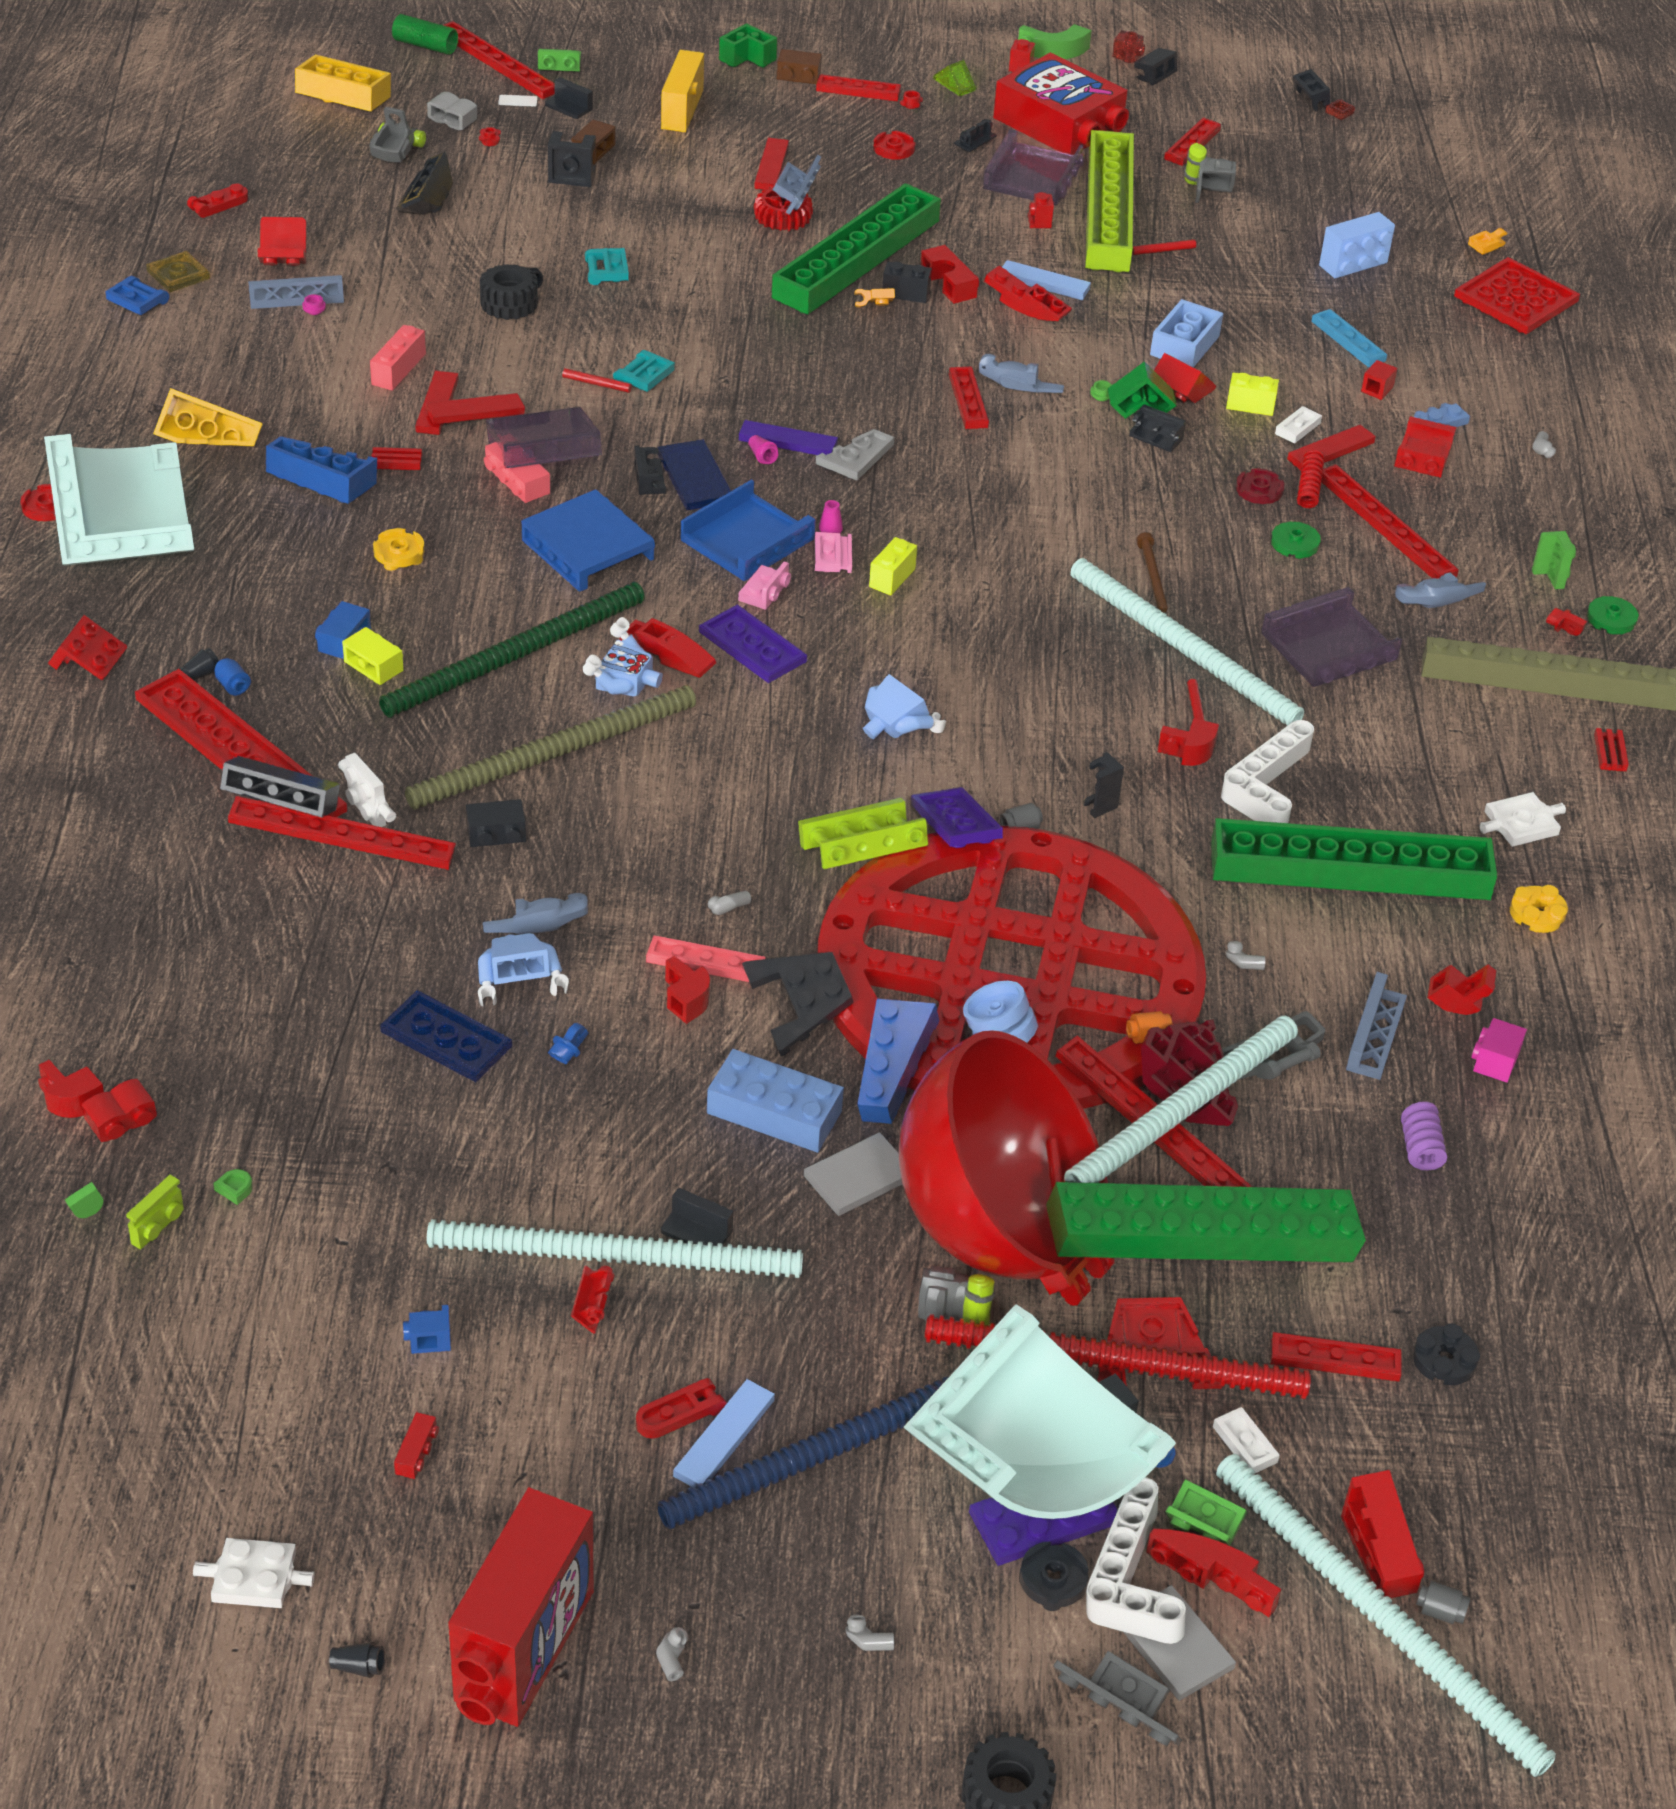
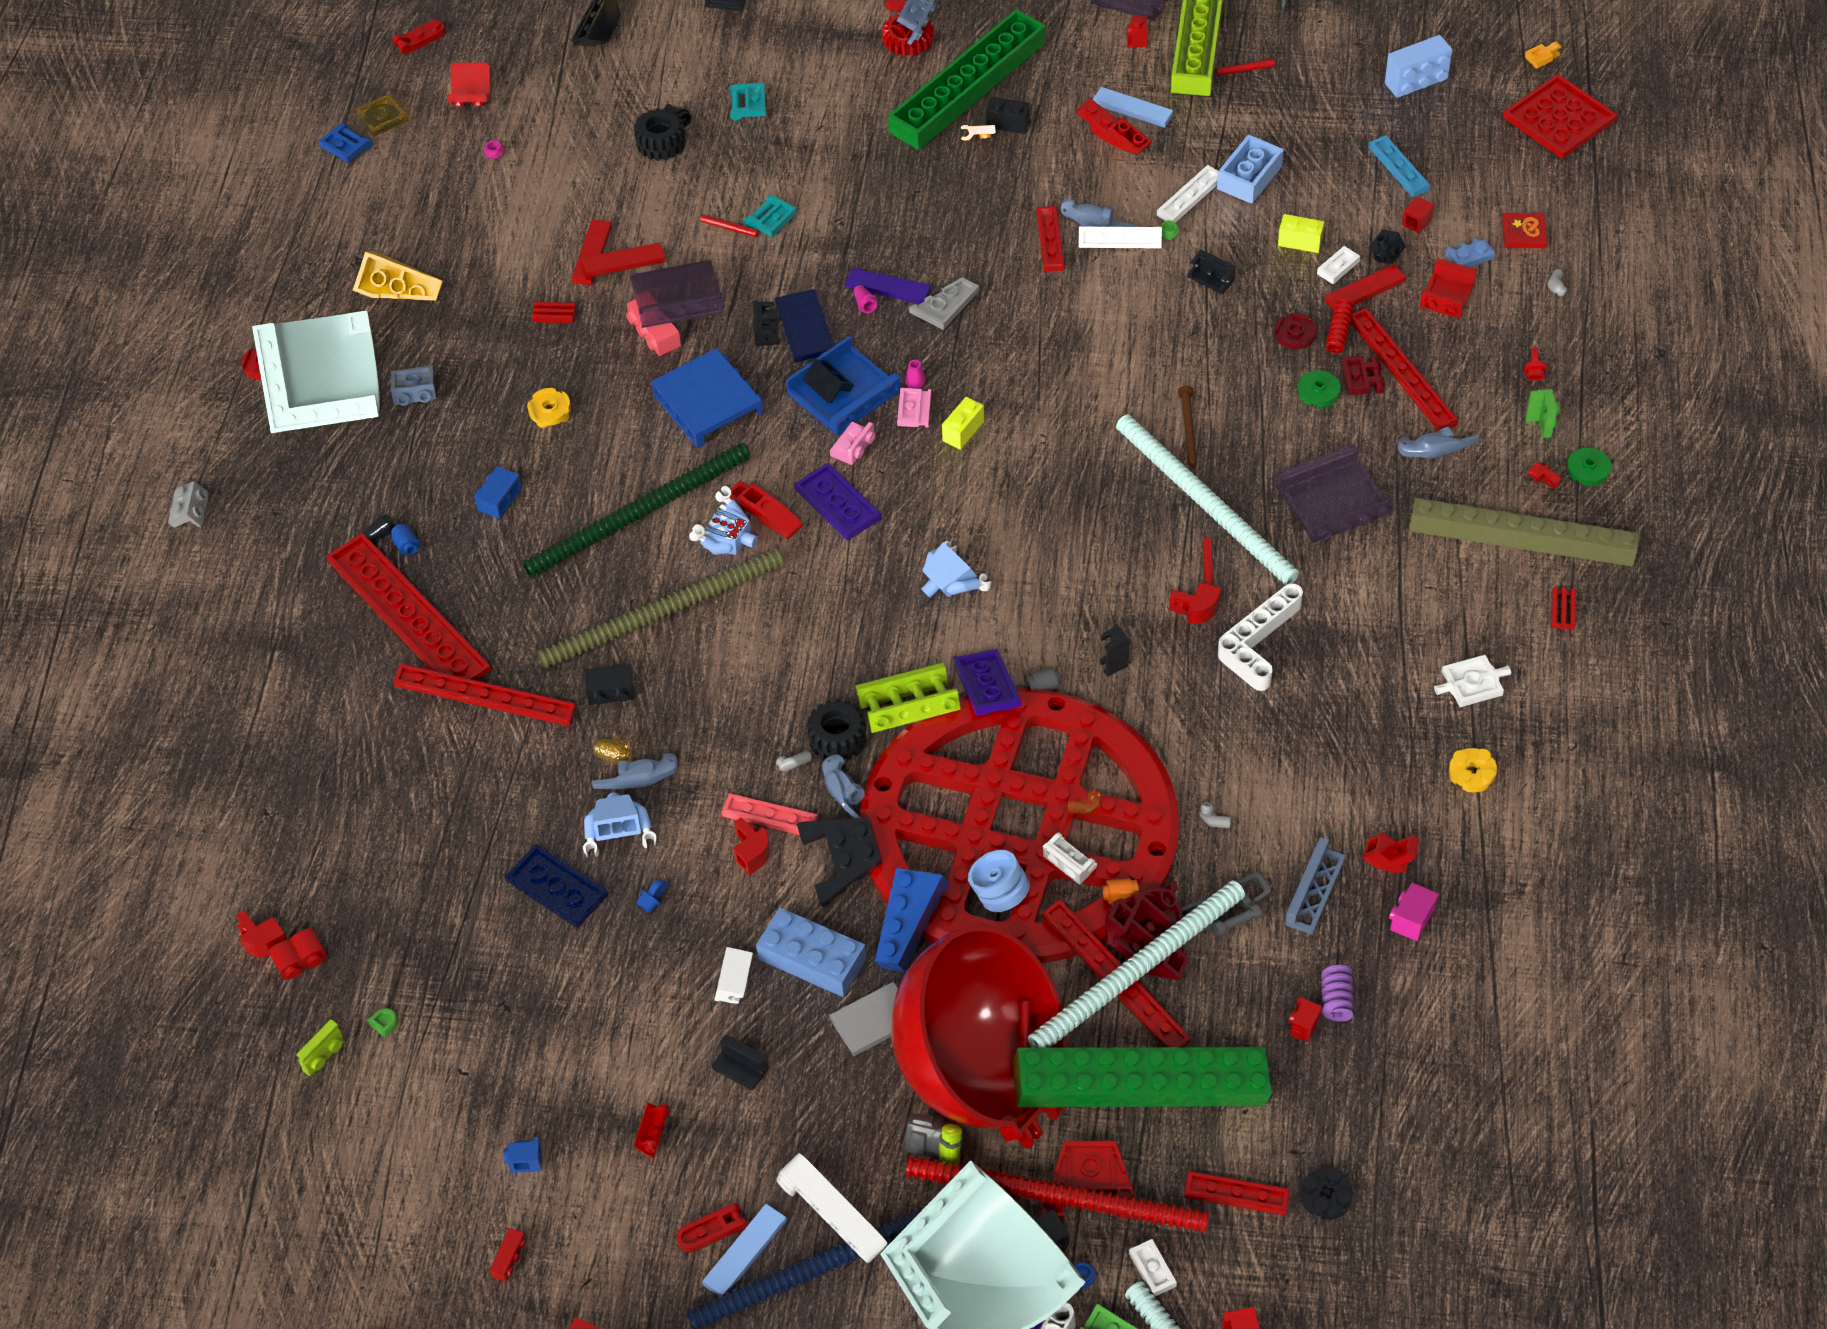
camera: 10 degrees right, 10 degrees up
(85, 1201) = (268, 1036): bright green tile -> none
(90, 648) = (292, 512): red bracket -> none
(233, 525) = (413, 385): none -> sand blue plate
(280, 786) = (435, 654): black brick -> none
(293, 291) = (478, 137): sand blue fence -> none
(321, 469) = (488, 328): blue wedge -> none
(366, 791) = (505, 657): white plate -> none
(373, 655) = (521, 518): neon yellow brick -> none
(398, 357) = (560, 207): coral brick -> none
(504, 891) = (611, 750): none -> clear yellow brick
(614, 1248) = (673, 1085): light aqua piece -> none
(679, 1127) = (733, 975): none -> white hinge
(727, 523) = (826, 380): none -> black panel
(780, 868) = (836, 716): none -> black tyre
(792, 924) = (841, 784): none -> sand blue animal
(835, 1366) = (818, 1192): none -> white beam
(958, 280) = (1054, 112): red arch -> none
(1048, 395) = (1120, 237): none -> white plate
(1081, 995) = (1068, 858): none -> white hinge
(1095, 939) = (1087, 805): none -> clear orange arm
(1121, 358) = (1189, 195): none -> white plate
(1140, 388) = (1201, 233): green brick -> none
(1183, 379) = (1240, 218): red slope -> none
(1343, 527) = (1356, 375): none -> dark red plate
(1351, 406) = (1387, 246): none -> black brick
(1353, 859) = (1318, 723): green brick -> none
(1388, 1164) = (1304, 1019): none -> red brick
(1497, 397) = (1524, 230): none -> red tile
(1535, 521) = (1535, 369): none -> red piece

